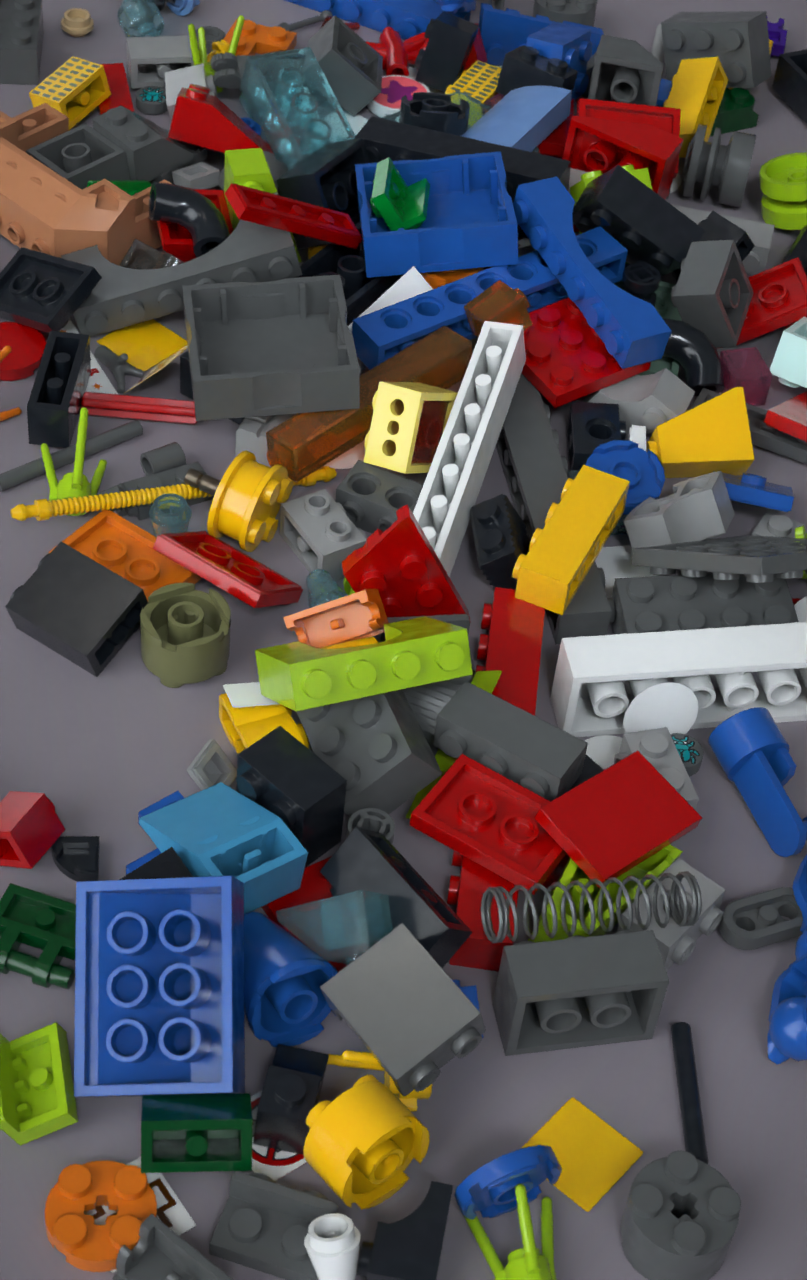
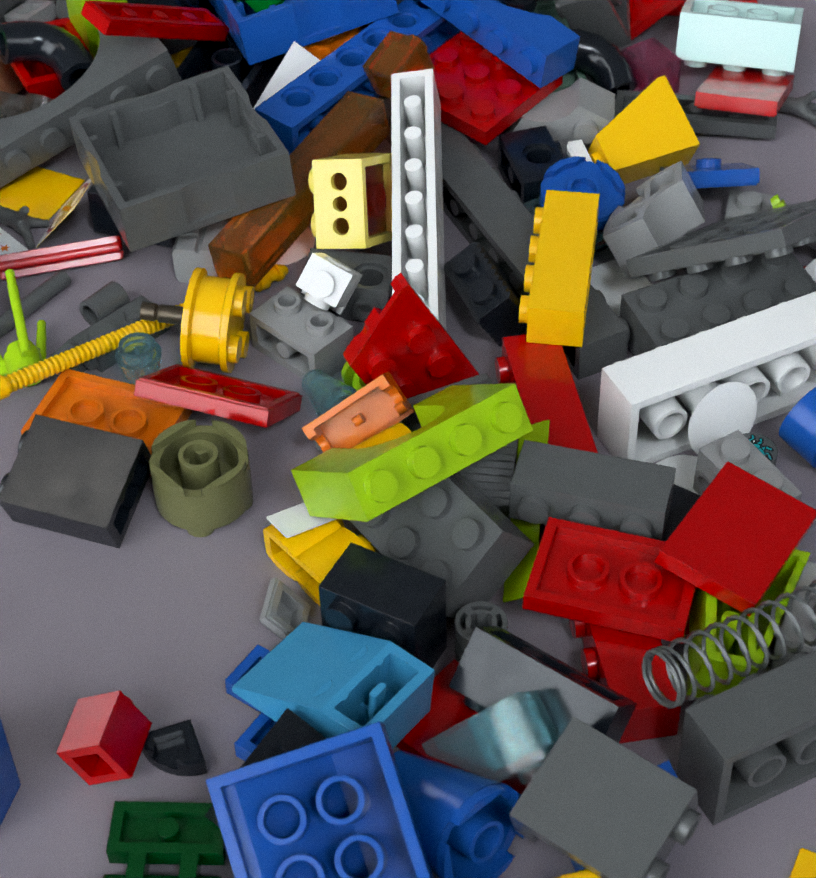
camera: 10 degrees left, 0 degrees up
(358, 495) = (328, 282): none -> white brick

